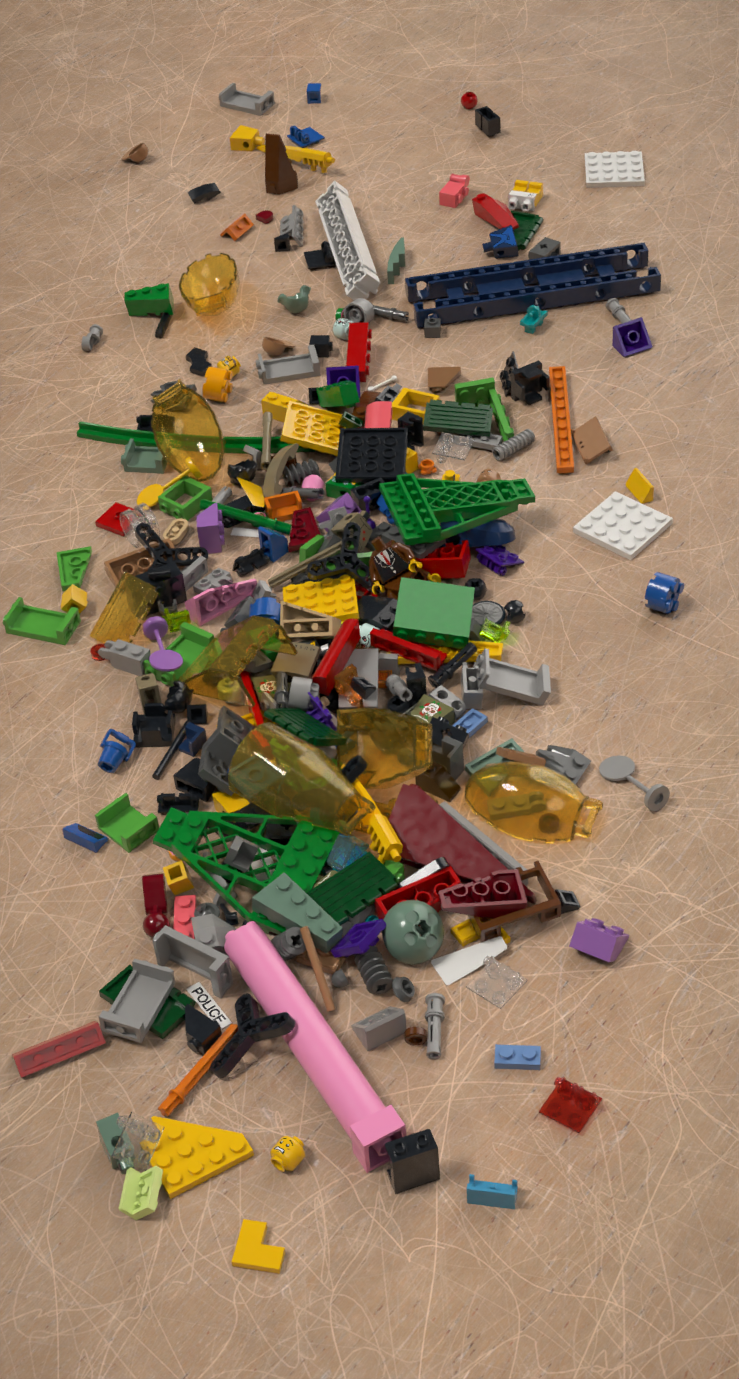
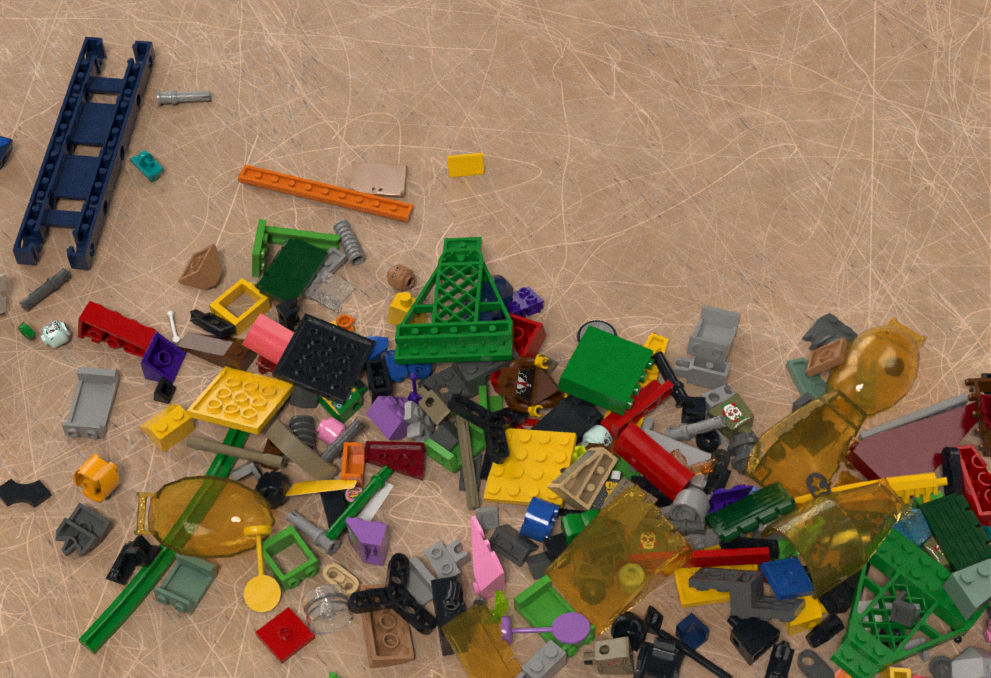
camera: 75 degrees left, 10 degrees up
(229, 363) = (60, 463): yellow head -> none
(231, 918) = (949, 650): black hand -> none
(243, 564) = (424, 511): black hinge -> none
(274, 543) = (415, 489): blue slope -> none
(275, 346) = (46, 405): medium nougat cap -> none
(322, 345) = (71, 362): black brick -> none
(338, 394) = (193, 362): green wedge -> none
(350, 421) = (245, 366): dark green piece -> none
(359, 310) = (38, 311): light grey piece -> none
(362, 687) = (692, 454): black slope -> none
(432, 328) = (103, 255): dark grey plate -> none
(441, 726) = (773, 409): black brick -> none
(472, 721) = (752, 392): medium blue plate -> none
(480, 587) = (560, 334): black piece -> none
(493, 631) = (633, 331): clear neon green bracket -> none
(505, 375) = (238, 210): black hinge -> none
(514, 611) = (608, 311): black piece -> none
(529, 381) = (262, 188): black panel -> none
(545, 248) = (29, 124): dark grey brick -> none
(621, 768) = (844, 297): light grey piece -> none
(622, 525) = (512, 196): white plate -> none
(631, 337) = (230, 101): dark purple slope -> none
(663, 593) = (638, 191): blue brick -> none

